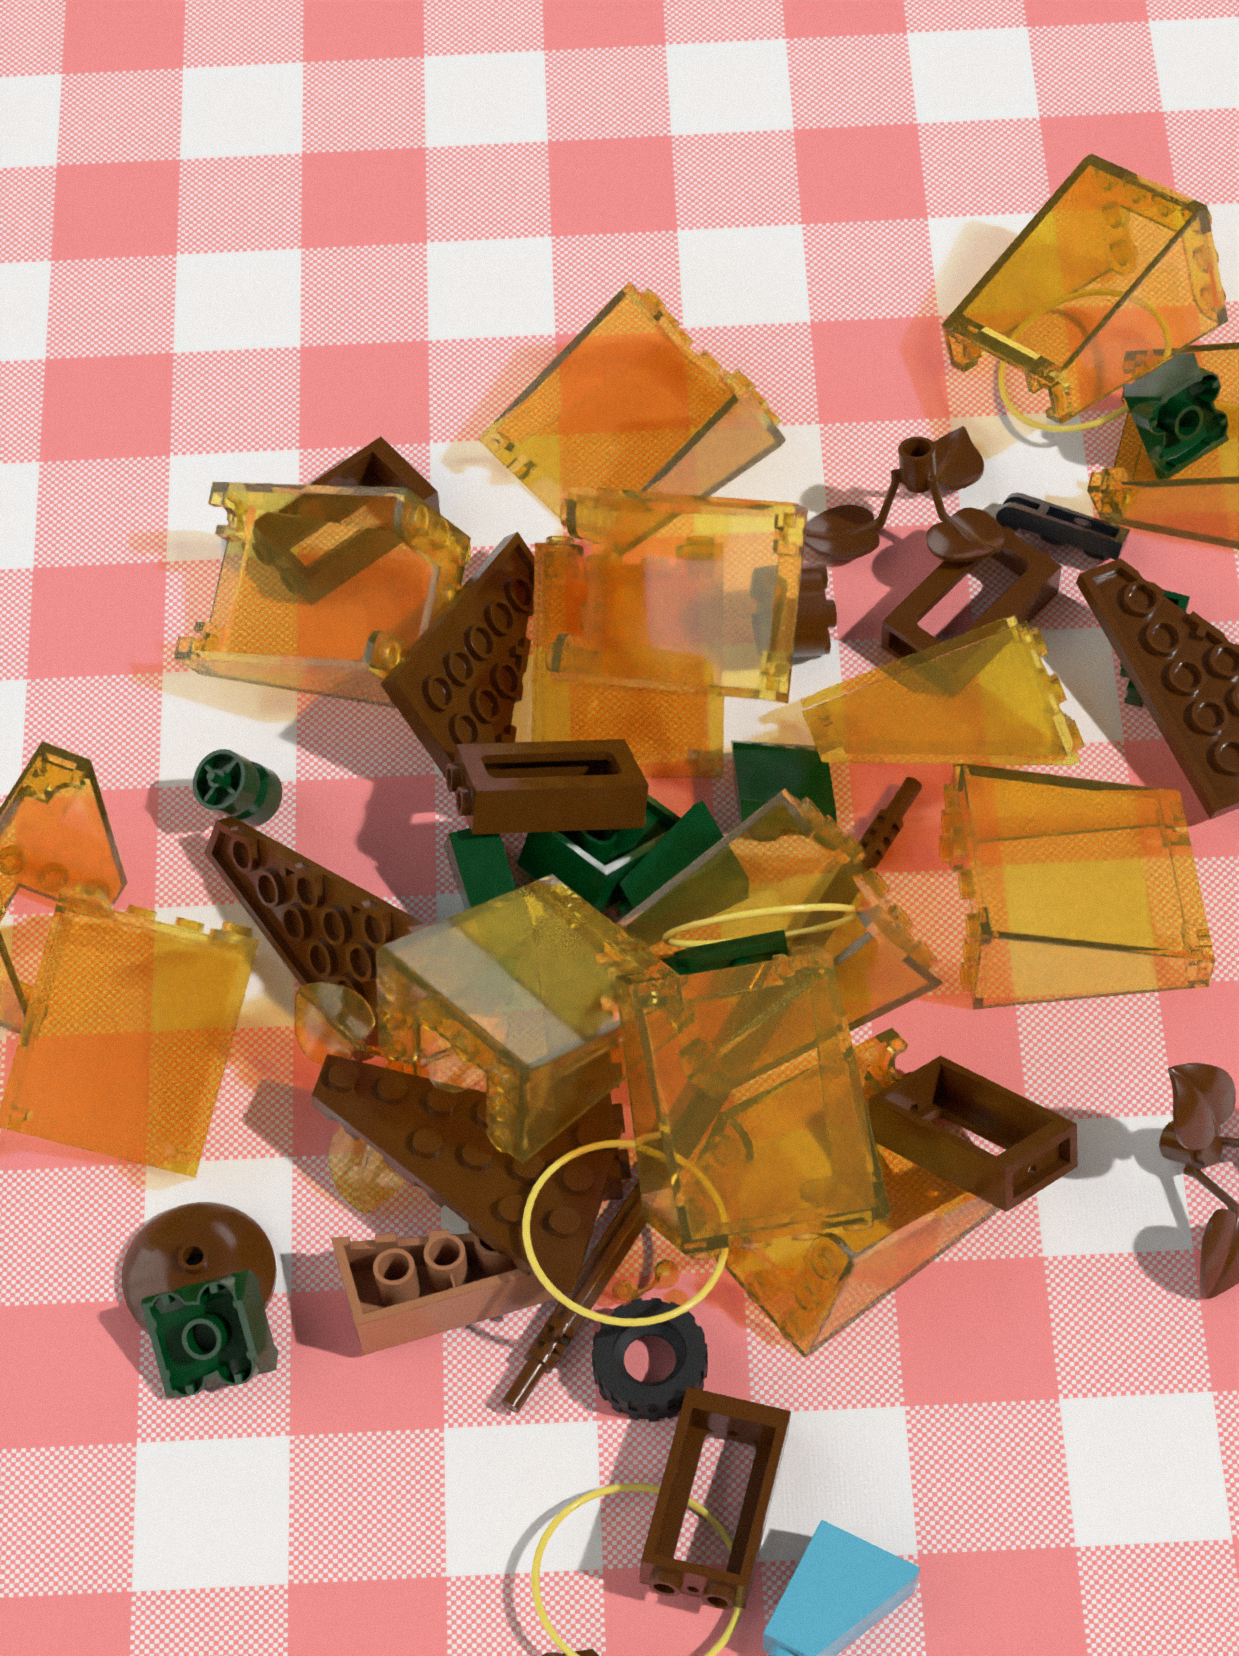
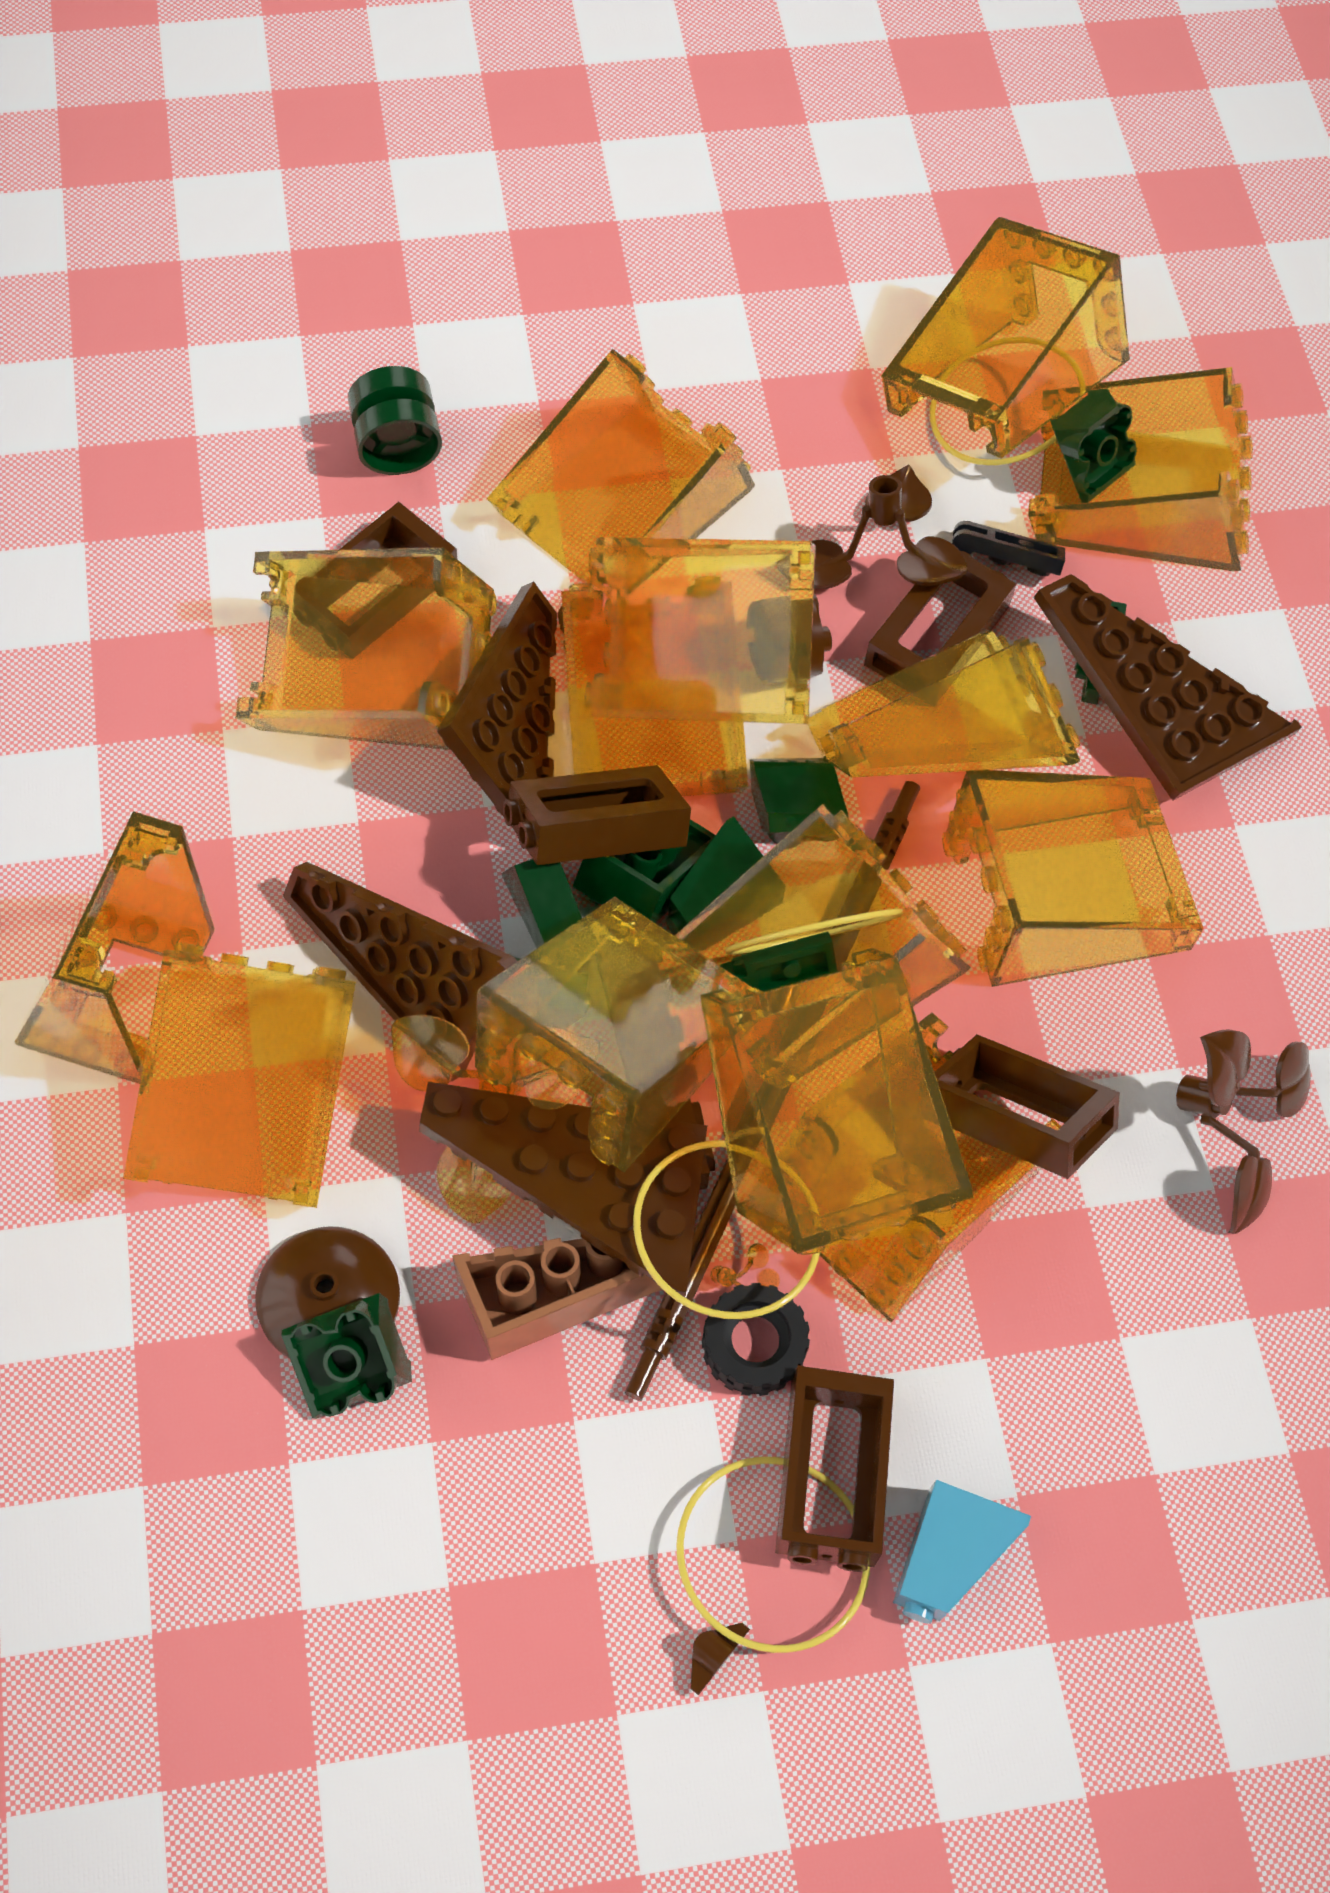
camera: 15 degrees left, 5 degrees up
(237, 787) = (308, 834): dark green wheel -> none
(387, 347) = (394, 420): none -> dark green wheel

